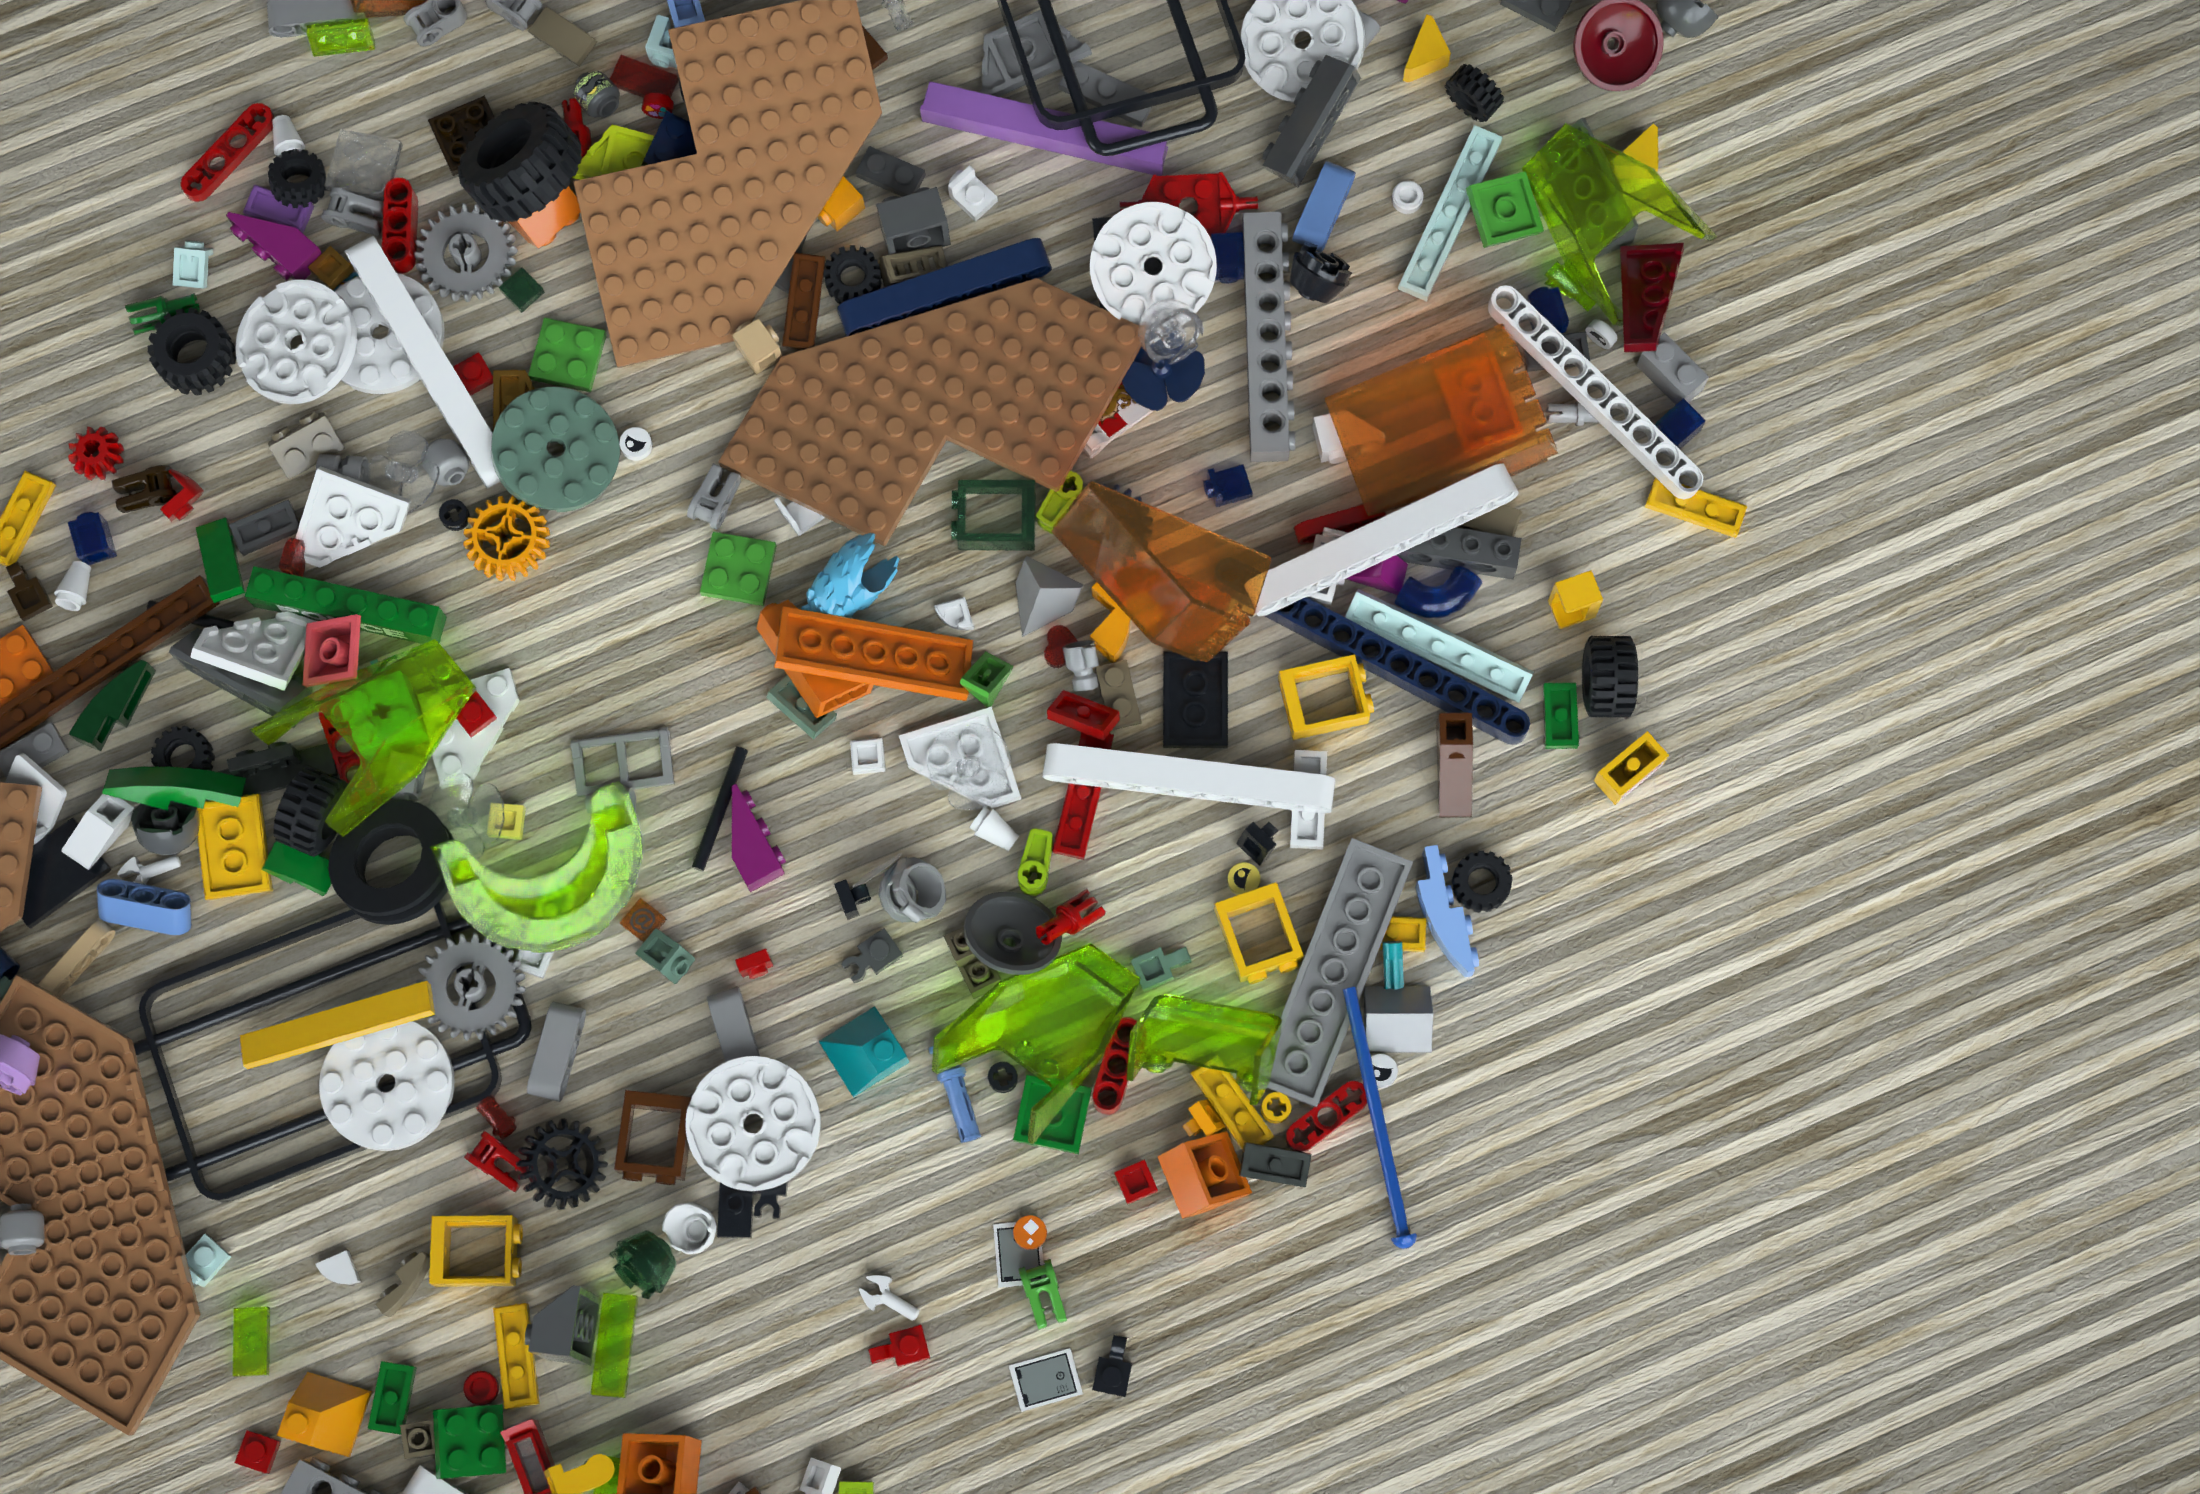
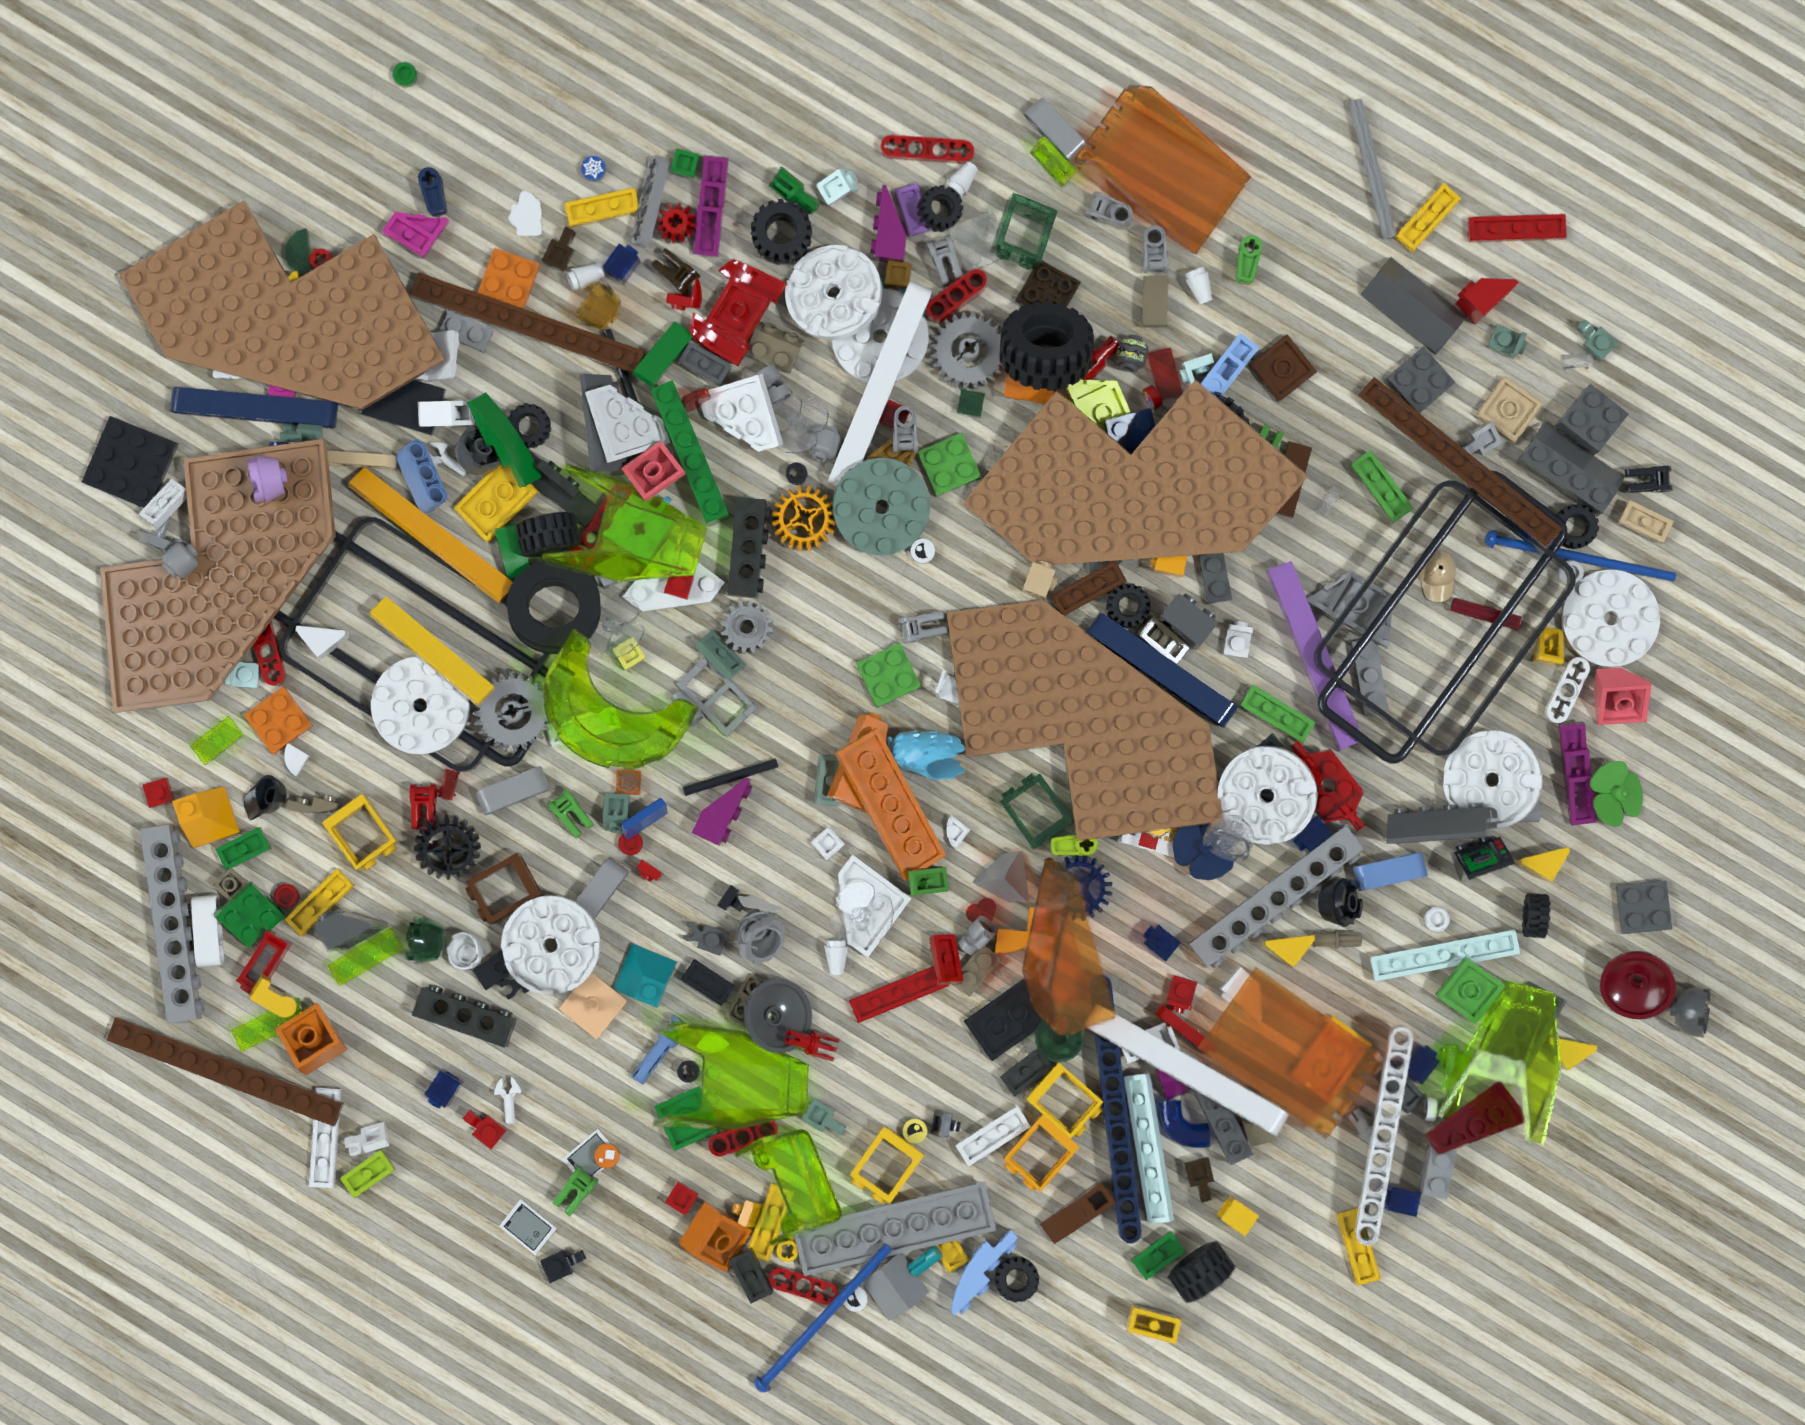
camera: 55 degrees right, 10 degrees up
(42, 402) = (684, 163): none -> green plate
(51, 463) = (650, 201): none -> light grey beam
(107, 405) = (711, 205): none -> magenta slope
(113, 705) = (529, 359): dark green slope -> none
(117, 590) = (599, 307): none -> clear yellow cone
(188, 1203) = (269, 638): none -> red beam
(214, 942) = (431, 535): none -> light orange tile
(232, 1138) = (322, 640): none -> white slope
(236, 456) = (736, 311): none -> red piece
(283, 1257) = (278, 720): none -> orange plate
(353, 1330) = (265, 797): none -> black cap
(375, 89) = (1033, 211): none -> clear green window
(499, 370) = (905, 432): none -> light grey piece
(524, 654) = (746, 509): none -> pearl dark grey brick
(566, 663) = (742, 615): none -> light grey gear
(581, 726) = (720, 655): none -> sand green plate
(622, 997) = (571, 805): none -> bright green piece
(693, 928) = (644, 818): none -> blue tile
(709, 965) = (631, 846): none -> red tile
(711, 1298) = (426, 1009): none -> pearl dark grey brick
(824, 1362) = (443, 1089): none -> clear blue brick
(854, 1130) = (593, 1005): none -> light nougat tile
(921, 987) = (707, 982): none -> black plate
(1036, 860) = (837, 995): lime piece -> none
(1077, 206) = (1277, 714): none -> bright green plate
(1189, 778) = (951, 1054): white beam -> none
(1254, 654) = (1055, 1046): none -> clear green cone
(1265, 716) = (1026, 1072): none -> pearl dark grey plate
(1298, 502) = (1181, 994): none -> red bracket
(1331, 359) = (1290, 949): none -> yellow slope
(1354, 730) = (1030, 1181): none -> light orange window
(1355, 308) = (1337, 939): none -> dark tan axle
(1375, 106) = (1481, 858): none -> black slope
(1504, 613) = (1199, 1174): none -> dark brown plate

